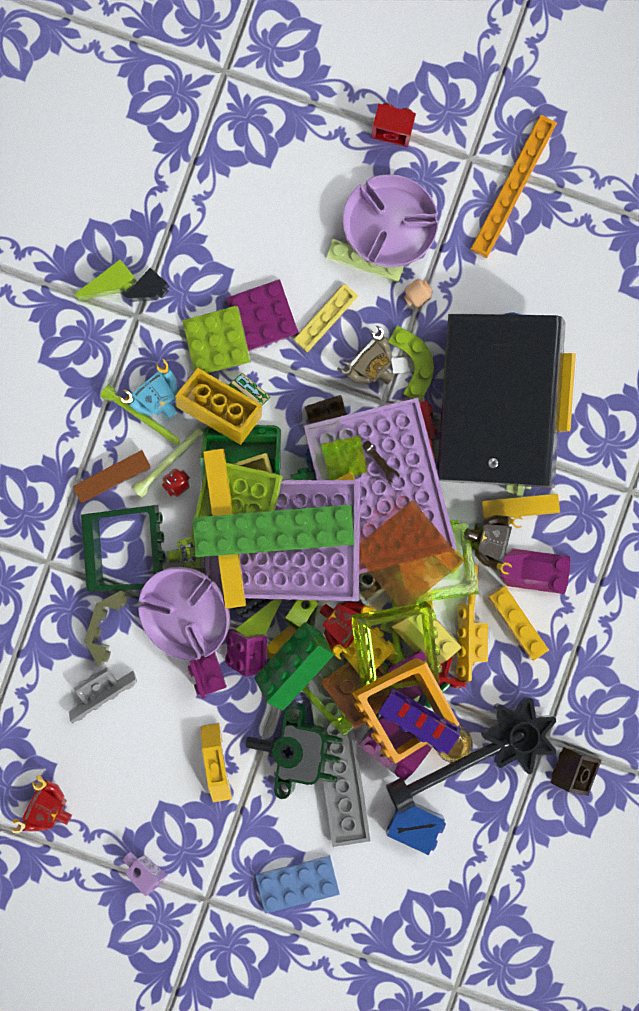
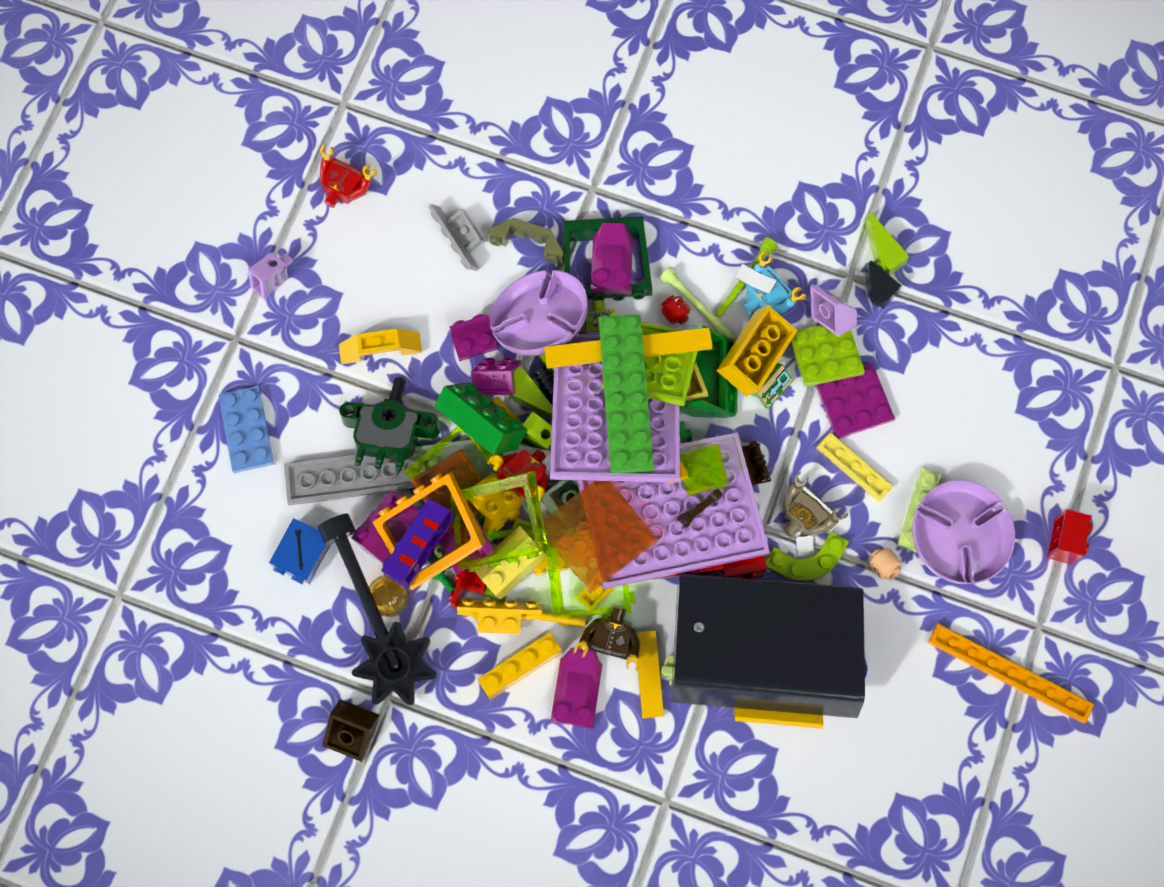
camera: 90 degrees right, 15 degrees down
(112, 476) = (682, 249): dark orange slope -> none
(126, 543) = (612, 259): none -> magenta slope
(145, 406) = (755, 279): none -> white sticker
(178, 334) = (832, 311): none -> lavender slope

